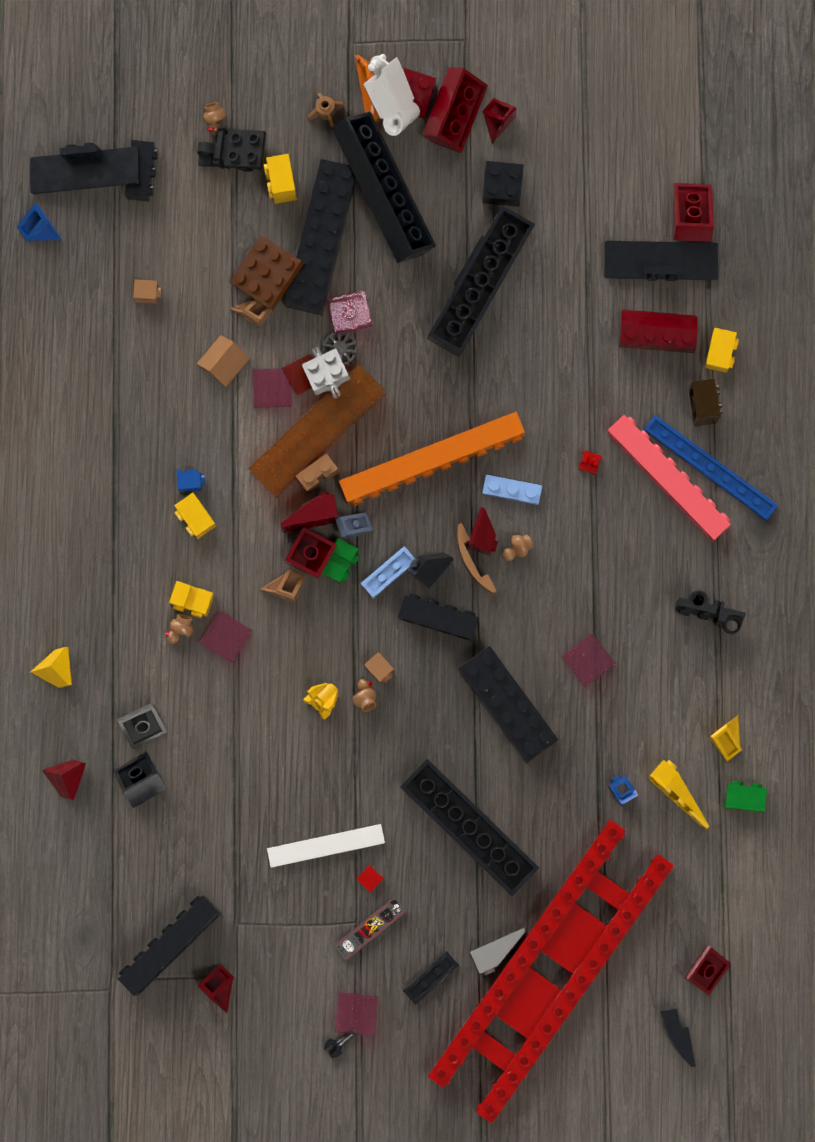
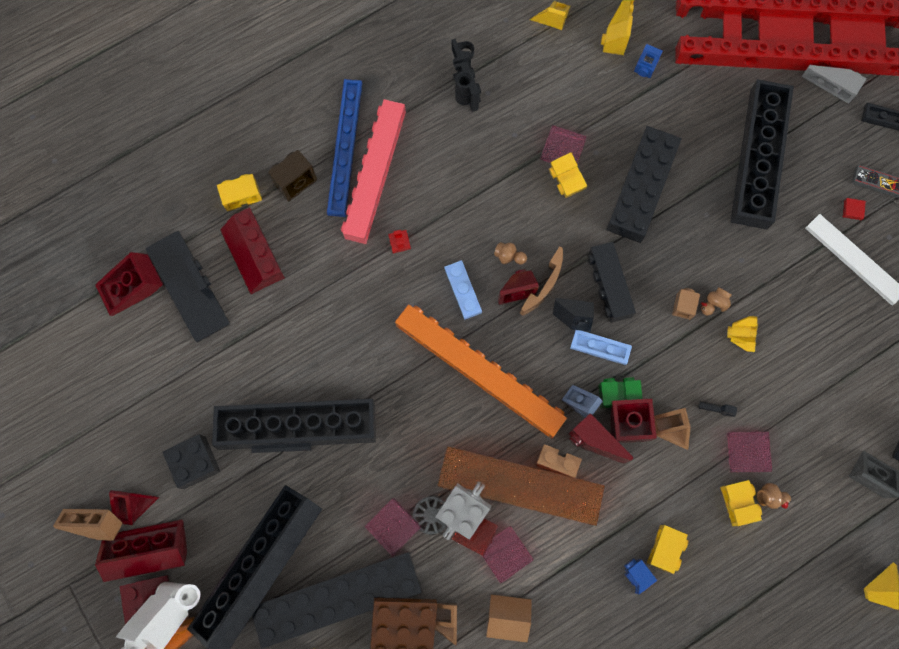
camera: 125 degrees left, 5 degrees down
(272, 637) = (725, 410): none -> black bar
(503, 79) = (89, 523): none -> medium nougat slope
(557, 643) = (567, 175): none -> yellow brick

